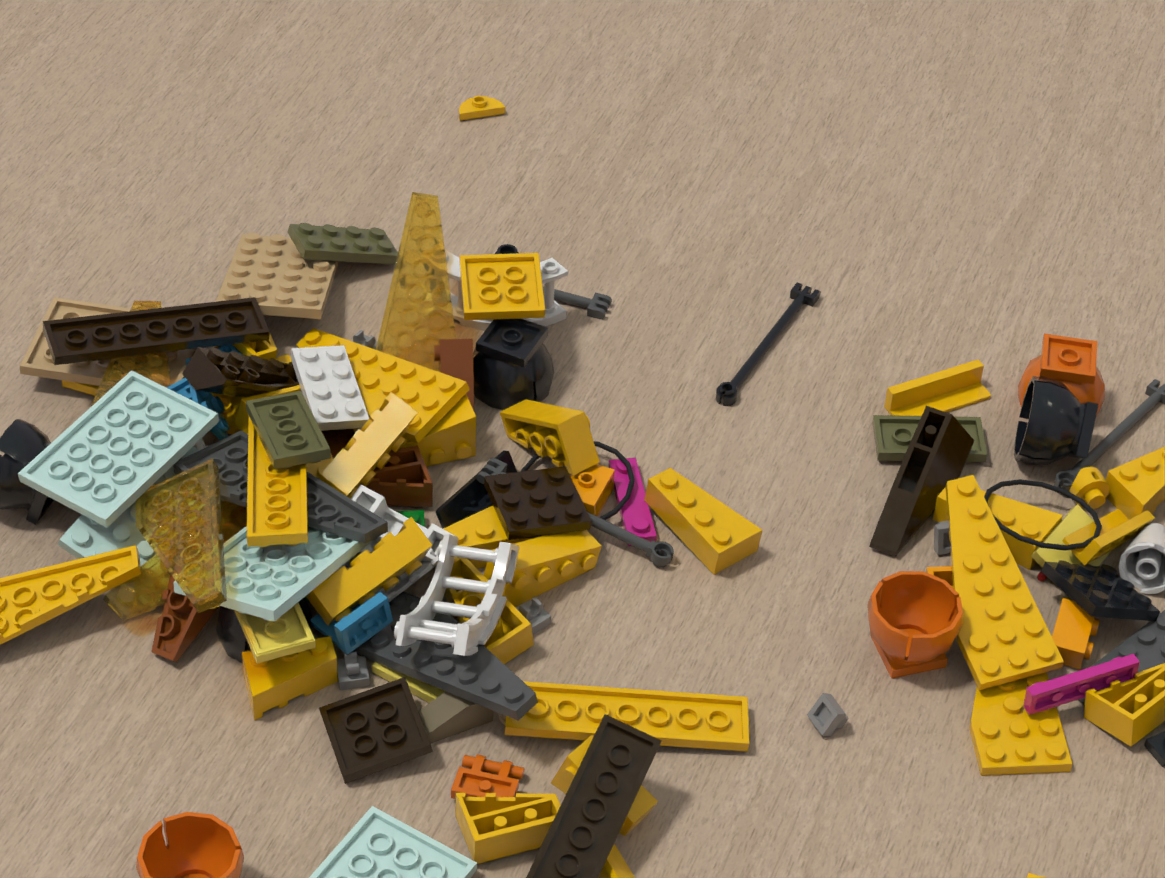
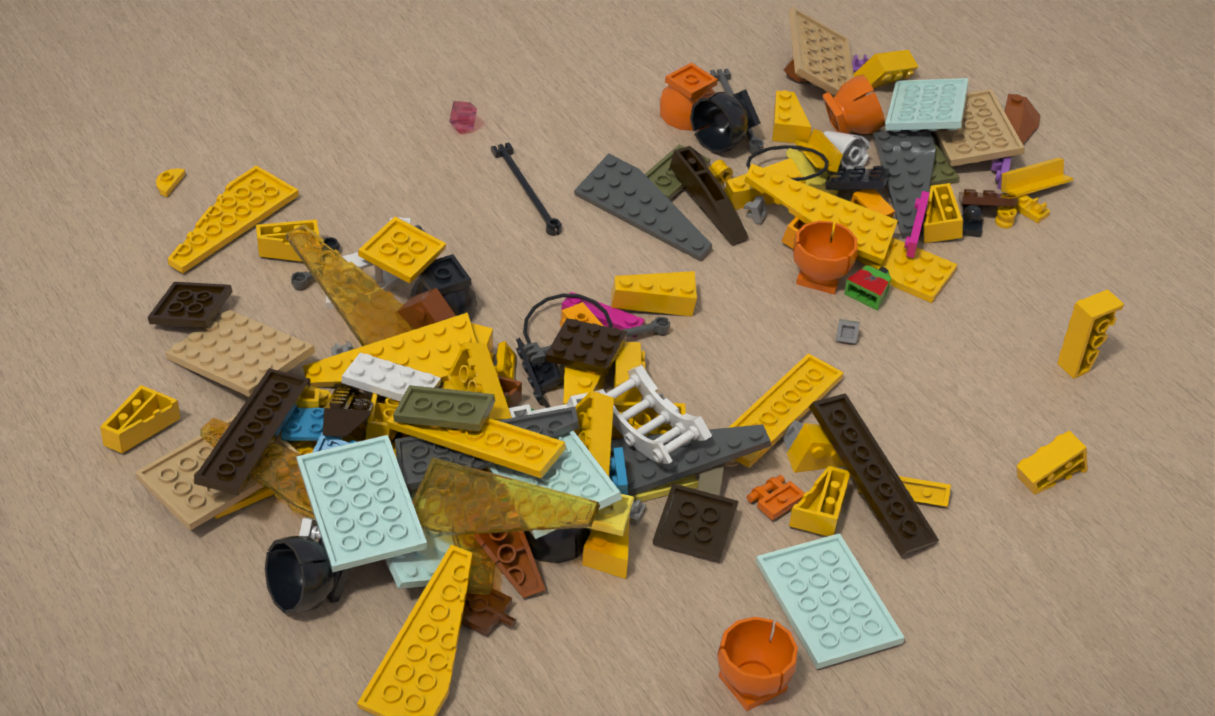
camera: 55 degrees left, 0 degrees up
(103, 629) = (486, 611): none -> reddish brown plate
(129, 264) = (139, 418): none -> yellow wedge
(315, 208) = (190, 304): none -> dark brown plate
(342, 243) = (242, 307): olive plate -> none
(465, 464) = (505, 361): none -> yellow plate
(475, 222) = (272, 239): none -> yellow wedge
(509, 170) = (238, 209): none -> yellow wing
(553, 433) = (527, 307): yellow wedge -> none
(811, 233) = (463, 115): none -> clear pink brick
(840, 427) = (637, 201): none -> dark grey wing
(932, 699) = (869, 286): none -> torso
(941, 390) = (643, 146): yellow panel -> none
(982, 470) = (722, 170): none -> yellow wheel
(1090, 489) = (774, 138): yellow piece -> none

